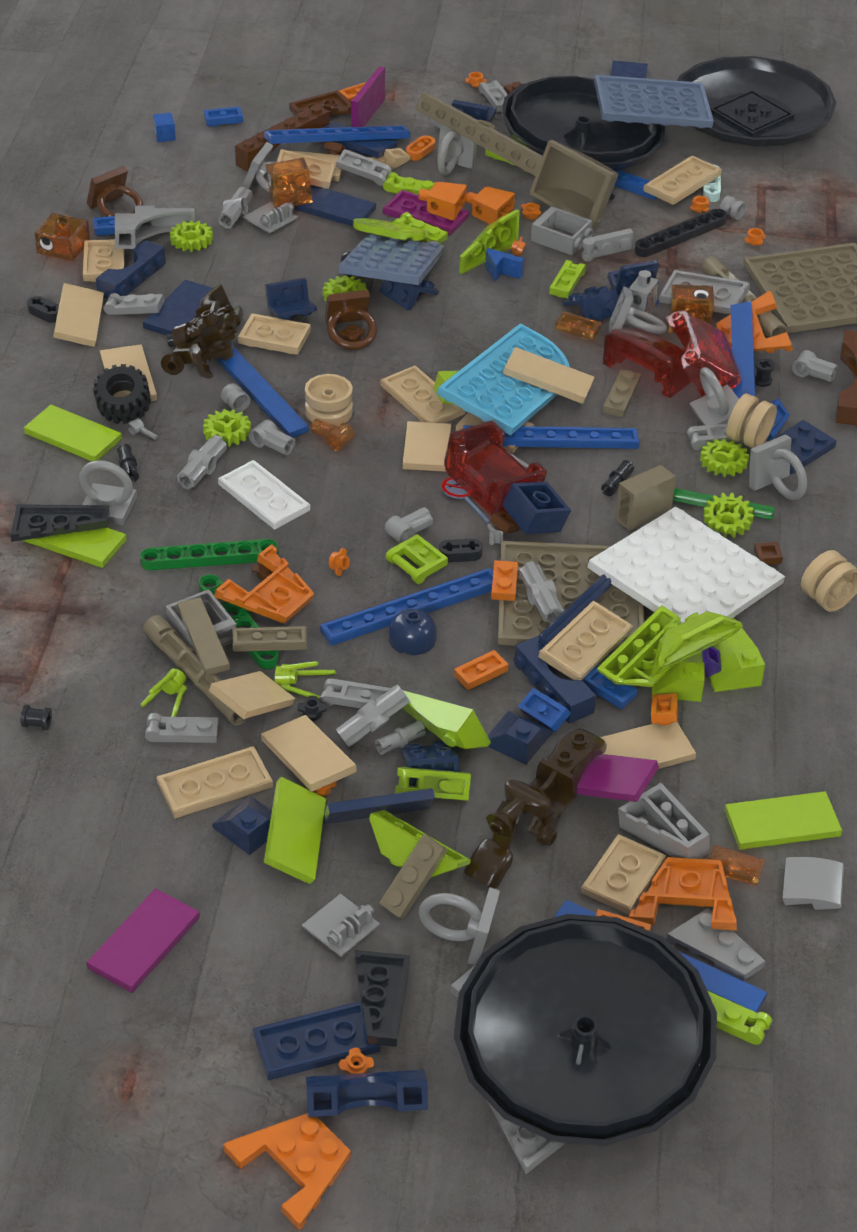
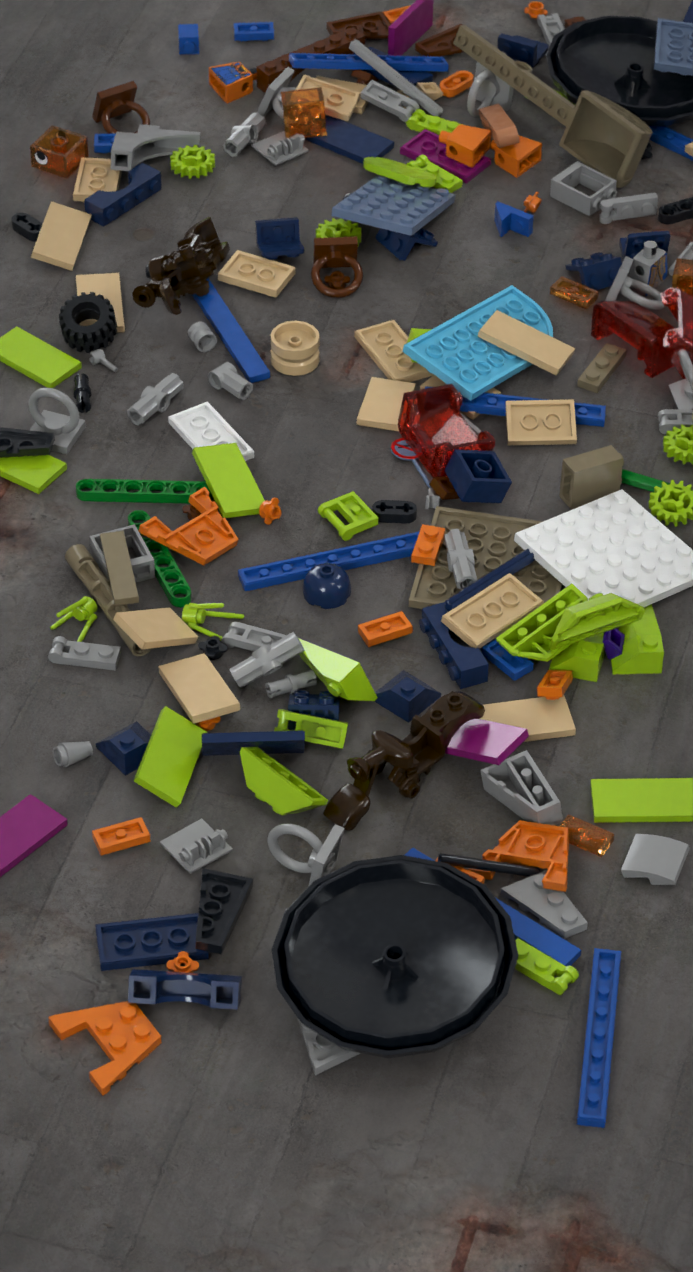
camera: 10 degrees right, 0 degrees up
(133, 304) = (119, 229): light grey plate -> none
(177, 308) = (163, 237): dark blue tile -> none
(188, 838) = (71, 752): none -> light grey cone
(212, 160) = (232, 80): none -> orange torso
(214, 782) = (105, 706): tan tile -> none
(228, 425) = (188, 365): lime gear -> none
(260, 924) = (121, 836): none -> orange plate
(269, 638) = (184, 577): dark tan tile -> none
(292, 535) = (229, 479): none -> lime tile
(335, 435) = (294, 384): clear orange pin -> none
(365, 146) = (395, 78): none -> light grey axle
(401, 113) = (439, 44): none -> reddish brown wing
(406, 527) = (344, 483): light grey piece -> none
(413, 876) = (270, 809): dark tan plate -> none
(478, 183) = (501, 126): none -> nougat beam
(495, 236) = (510, 190): lime wedge -> none
(531, 211) = (557, 163): orange plate -> none
(544, 710) = (436, 672): blue plate -> none
(567, 279) = (576, 241): lime plate -> none
(581, 449) = (540, 422): none -> tan plate
(616, 477) = (574, 450): black pin -> none
(623, 874) = (474, 829): tan tile -> none
(650, 911) = (488, 865): none -> black piece
(812, 1092) = (599, 1038): none -> blue tile

